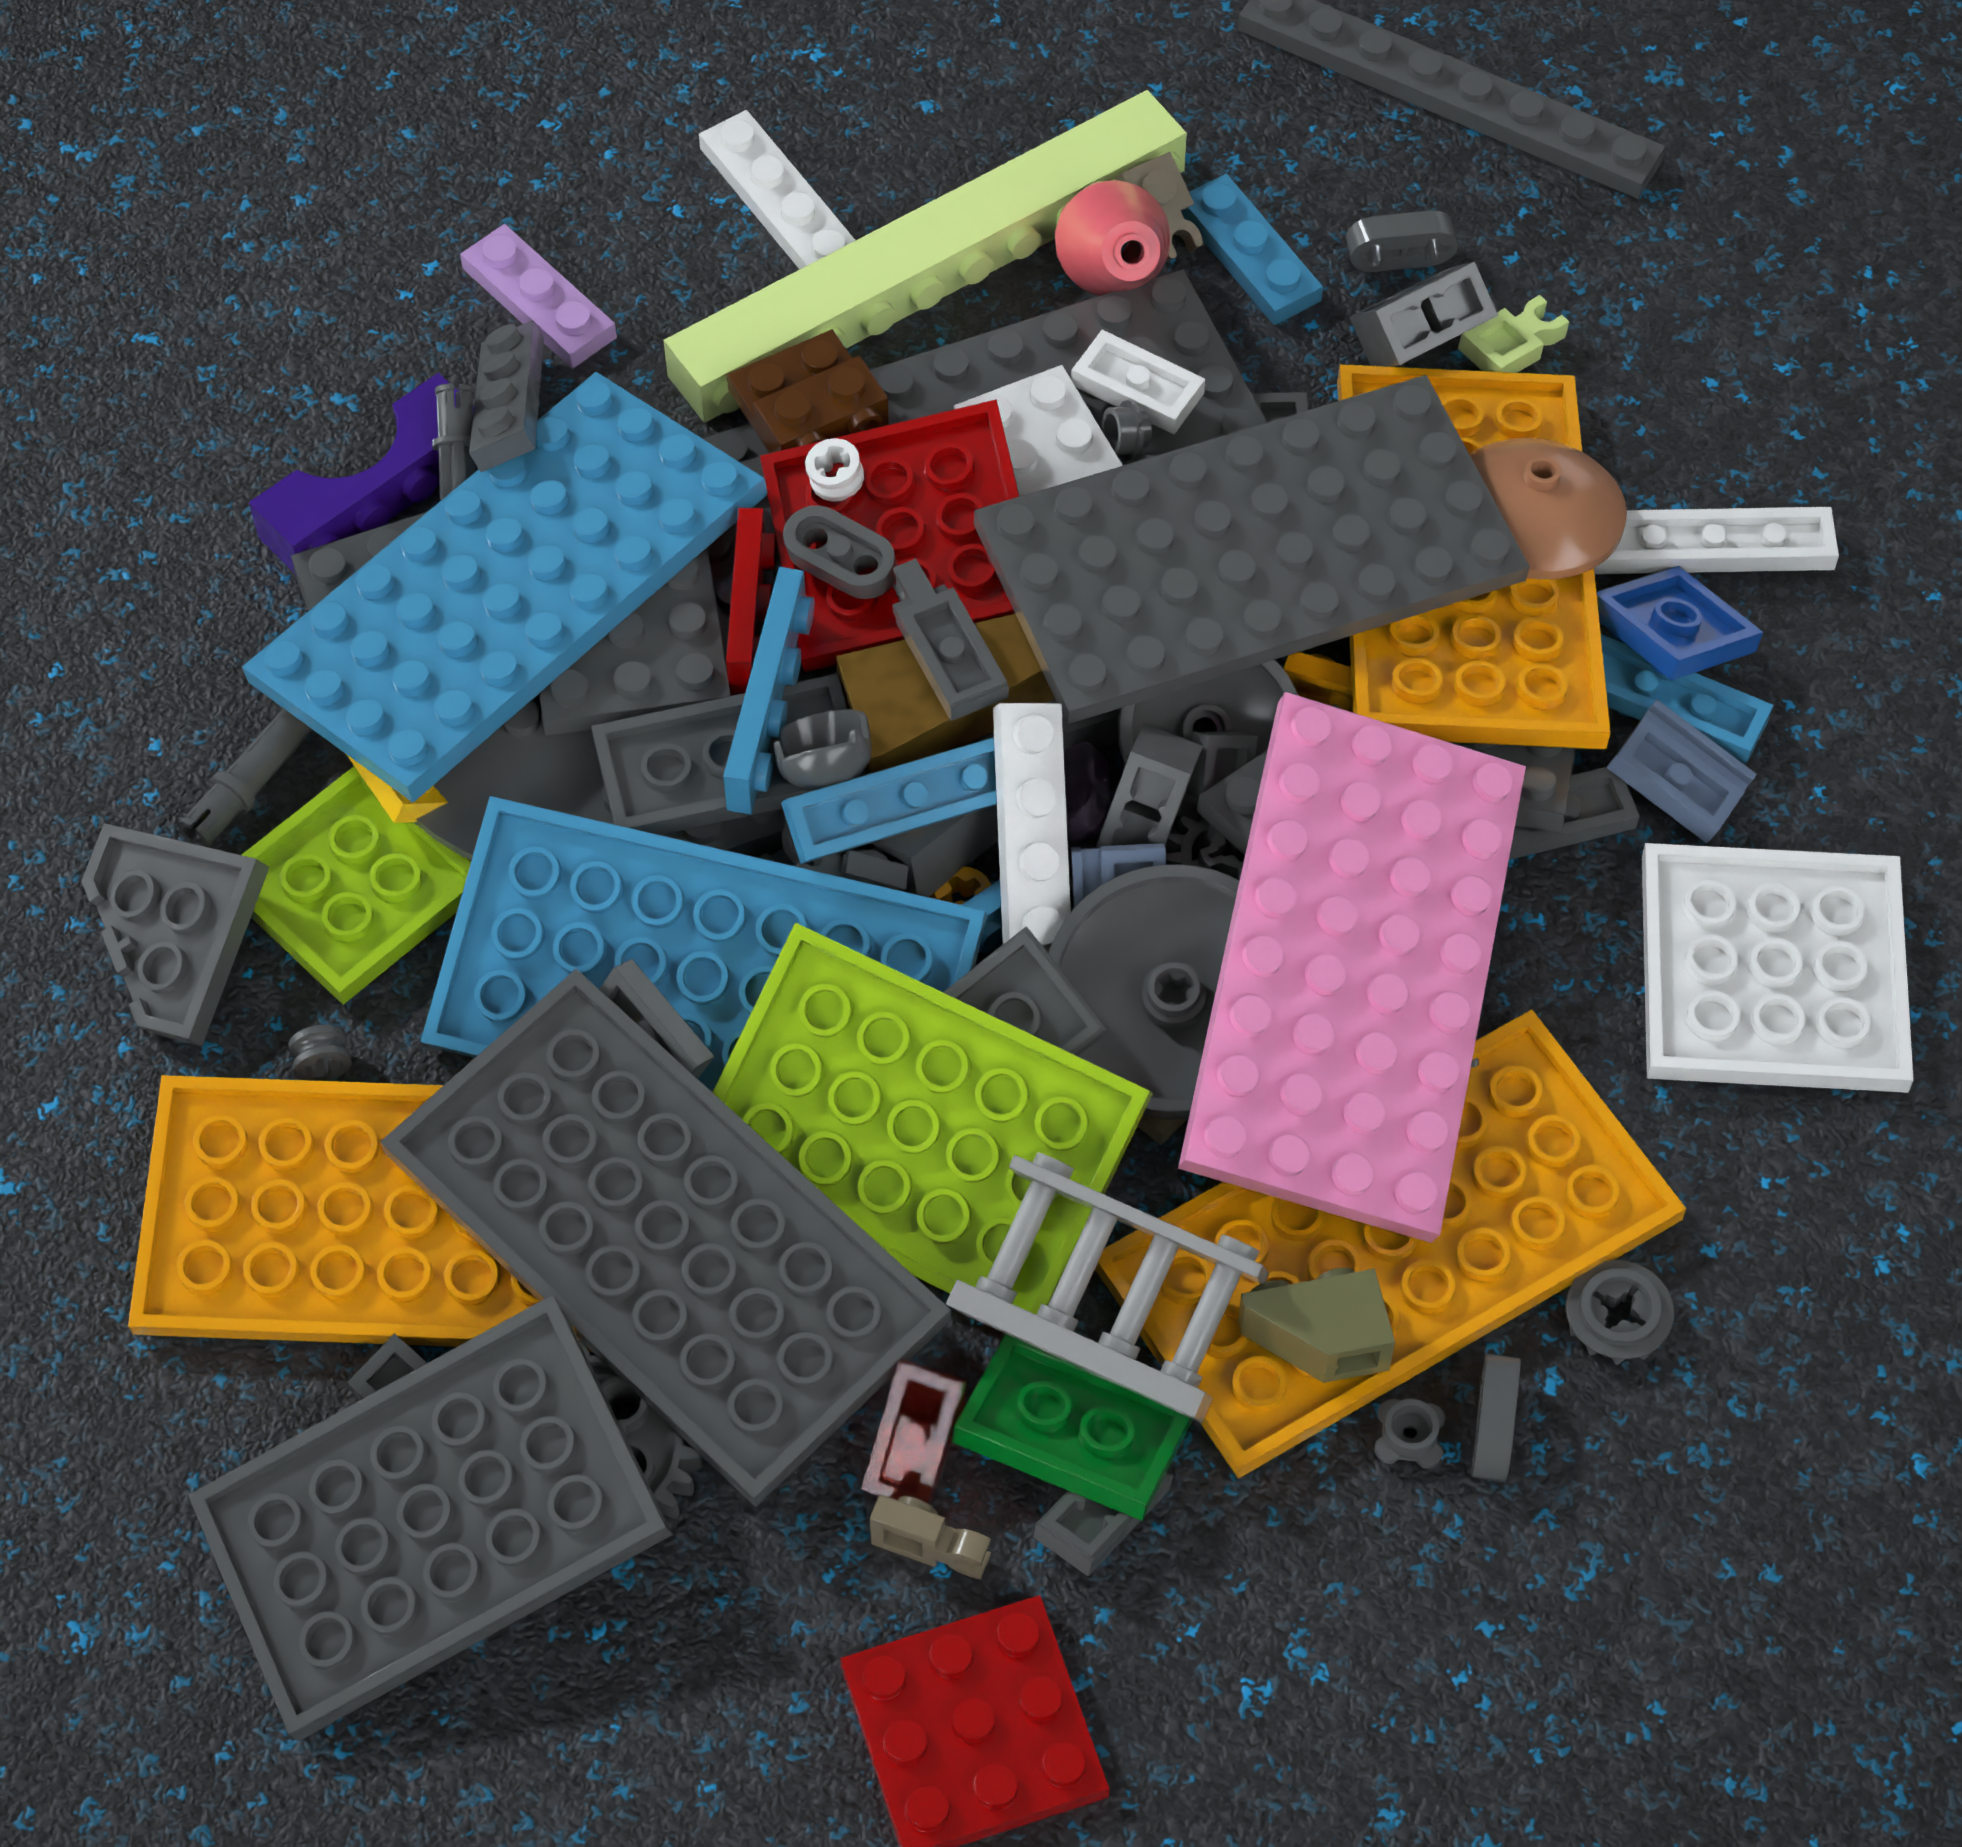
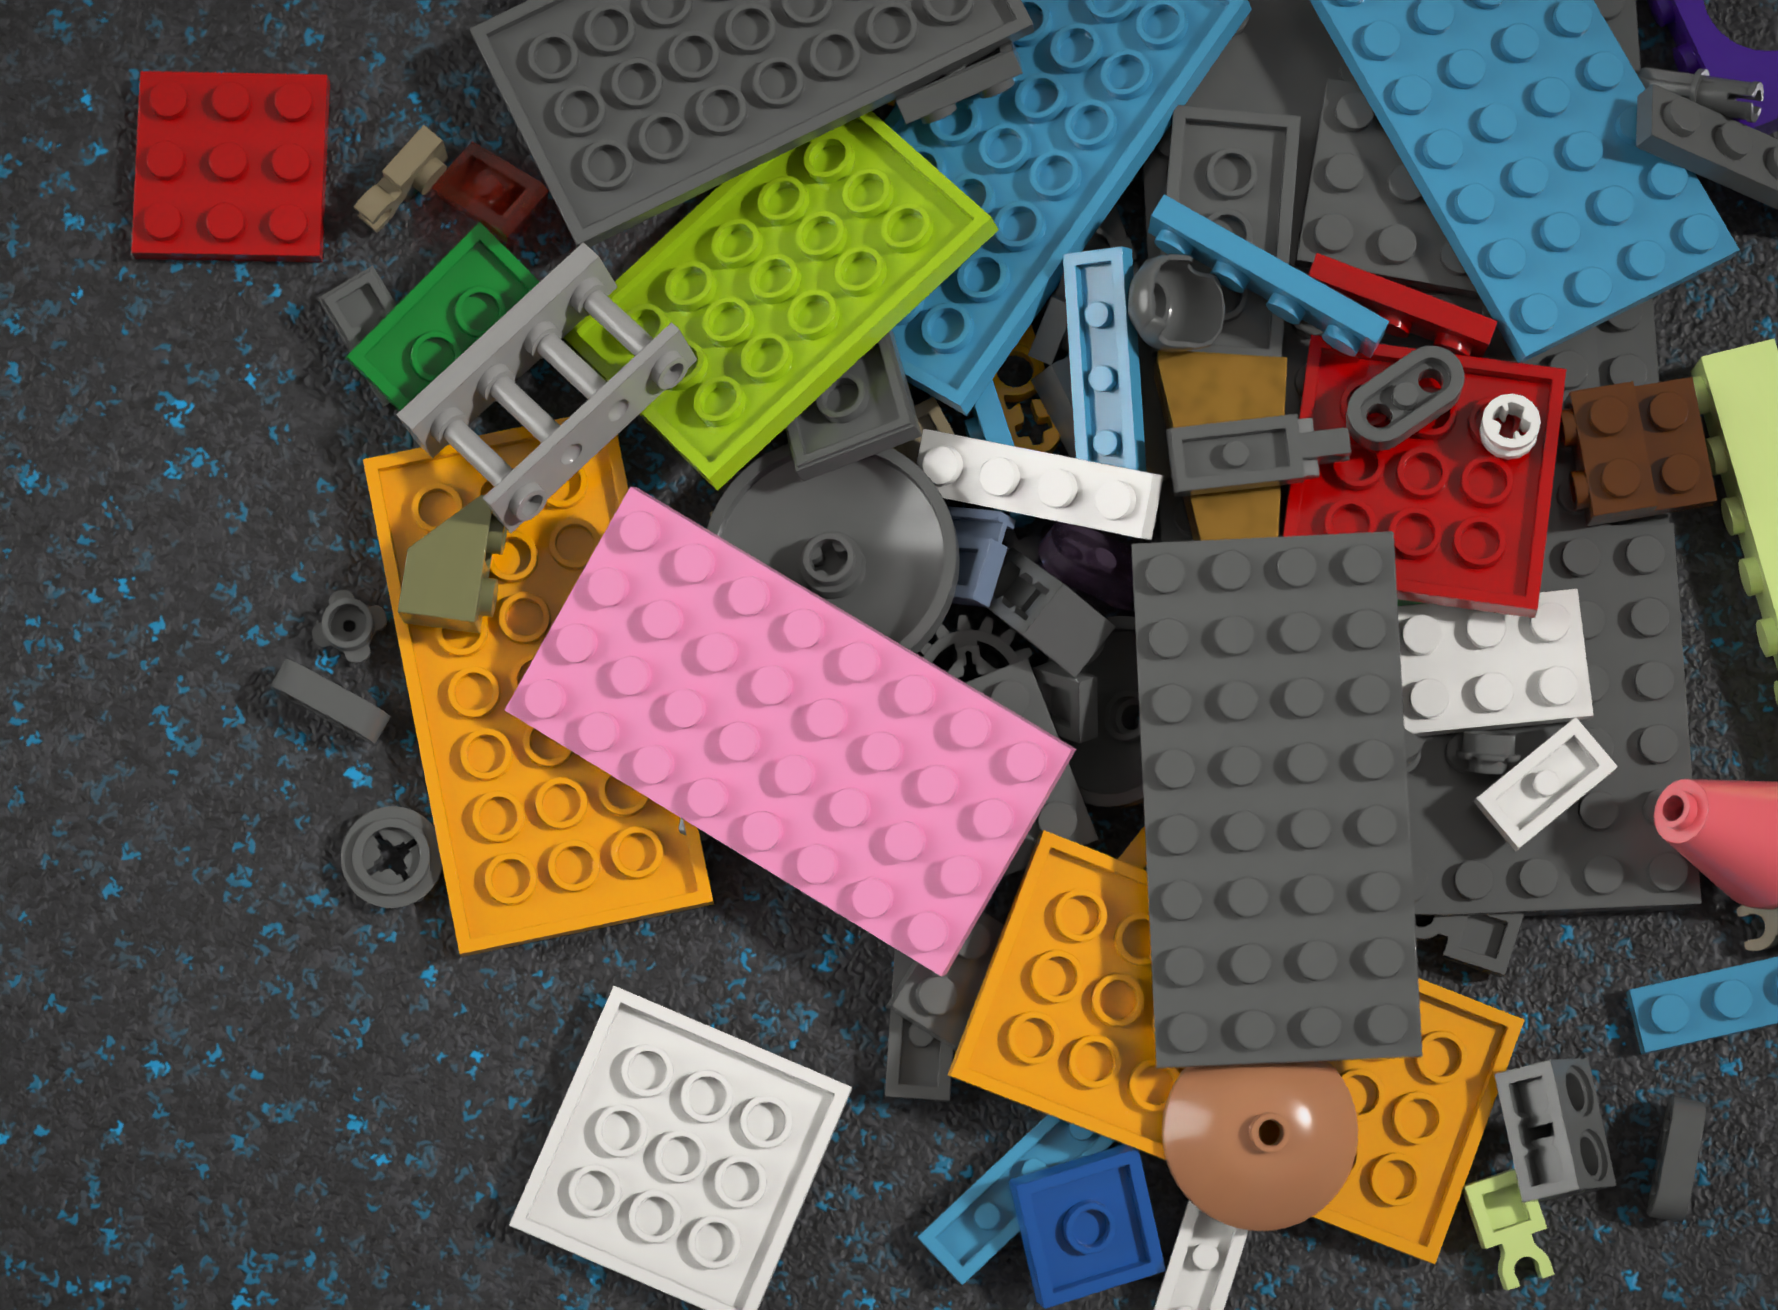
camera: 110 degrees right, 20 degrees up
(1681, 771) = (920, 1159): sand blue plate -> none

